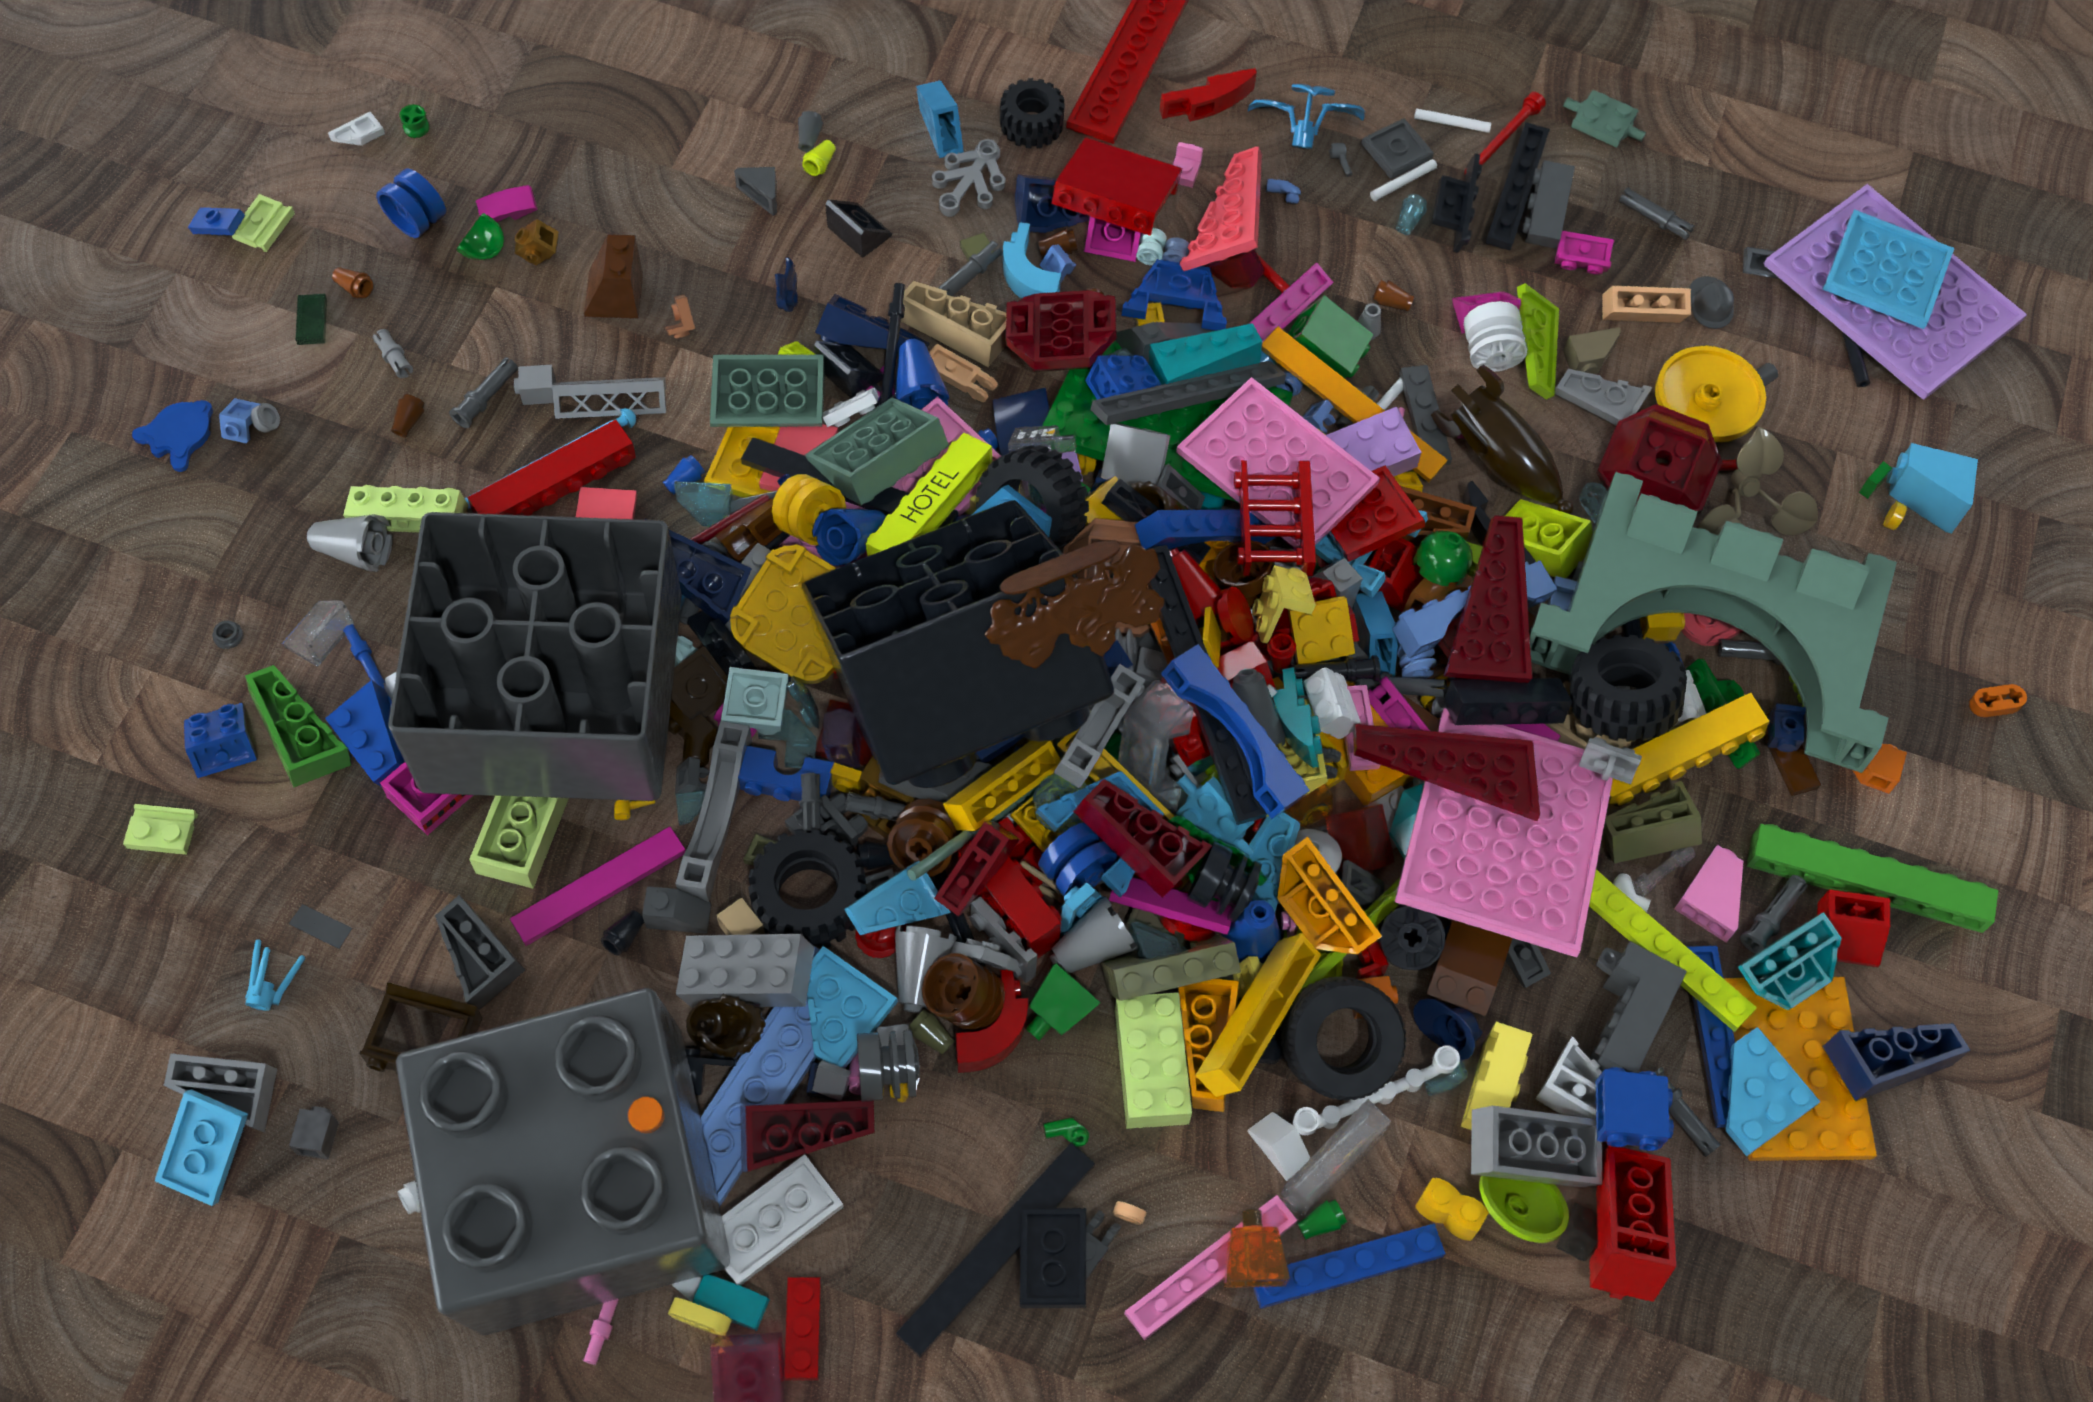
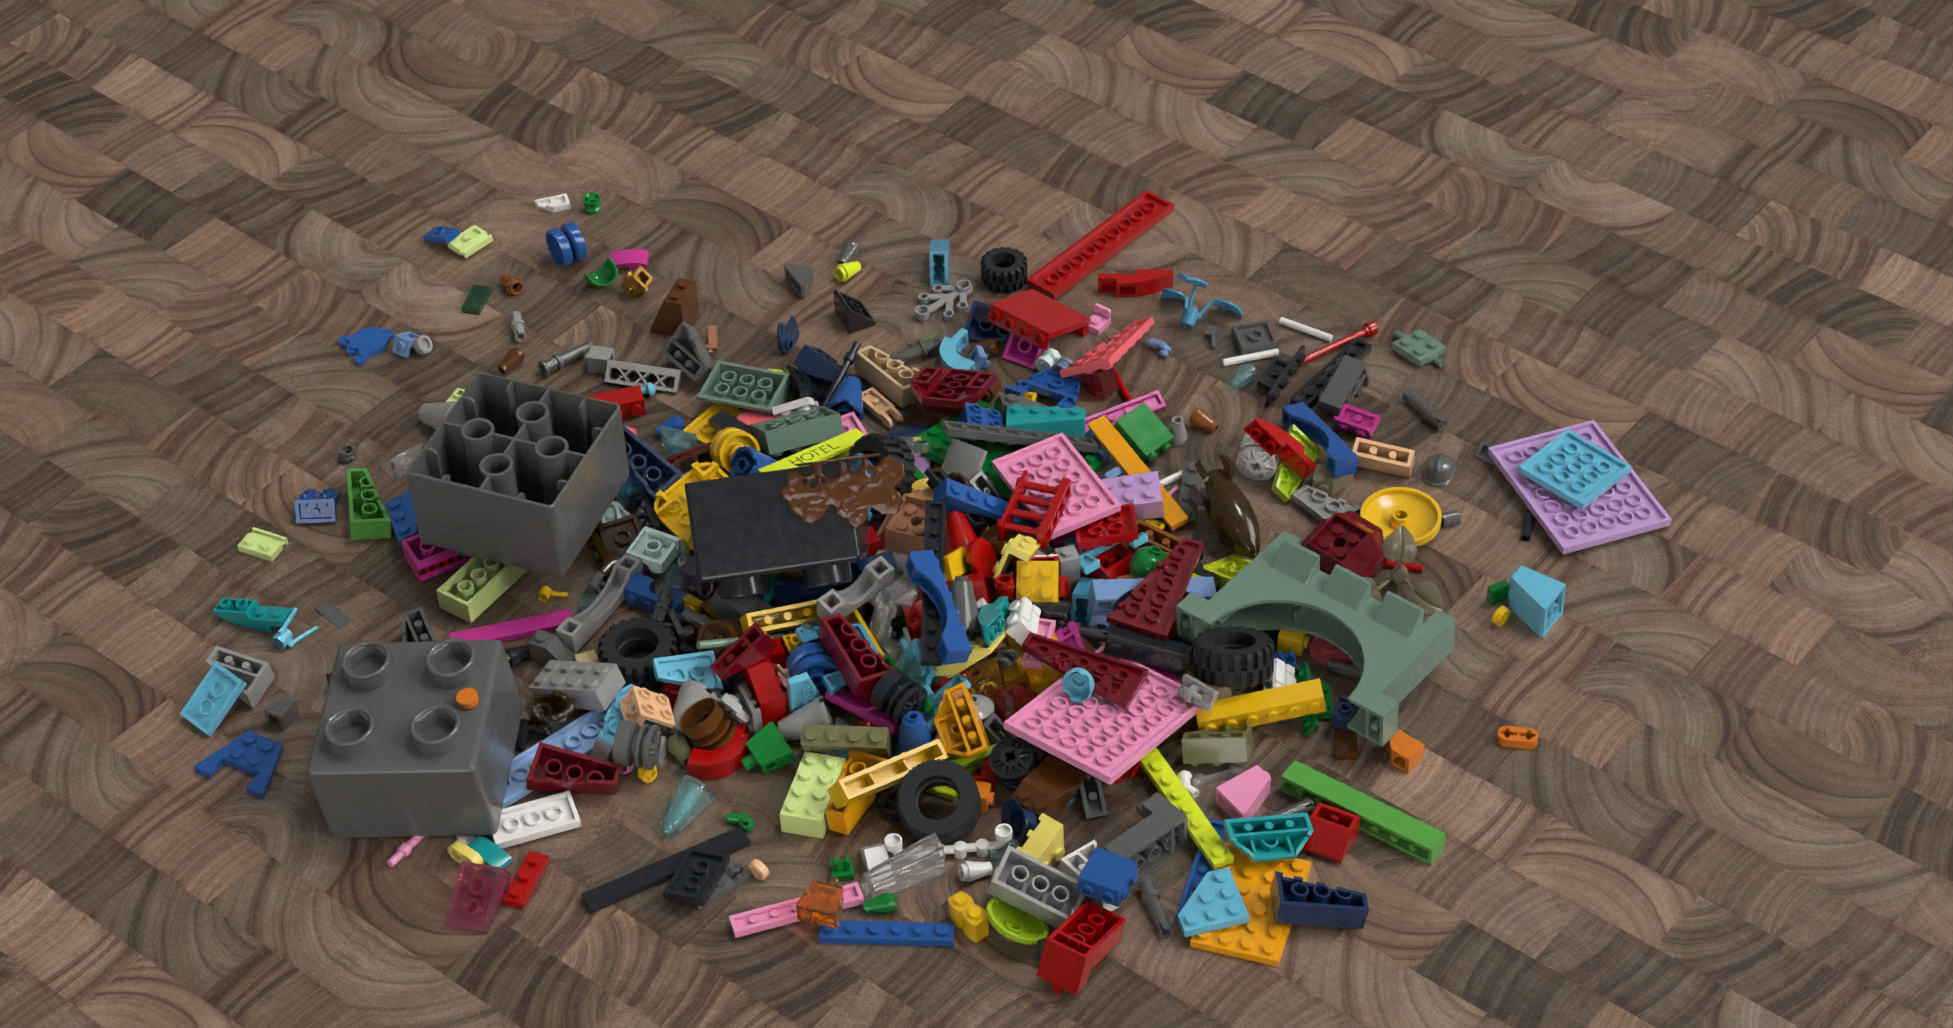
camera: 25 degrees right, 20 degrees down
(198, 966) = (251, 615): none -> teal slope
(294, 1221) = (247, 753): none -> blue wing
(667, 352) = (689, 353): none -> dark grey wedge
(867, 992) = (644, 705): none -> light nougat bracket
(982, 1137) = (685, 804): none -> clear light blue cone
(1240, 1174) = (842, 869): none -> green tile
(1420, 1125) = (973, 870): none -> white cone
(1467, 802) = (1078, 684): none -> medium azure hair
(1534, 324) = (1279, 442): none -> red slope
(1603, 322) = (1339, 457): none -> blue arch

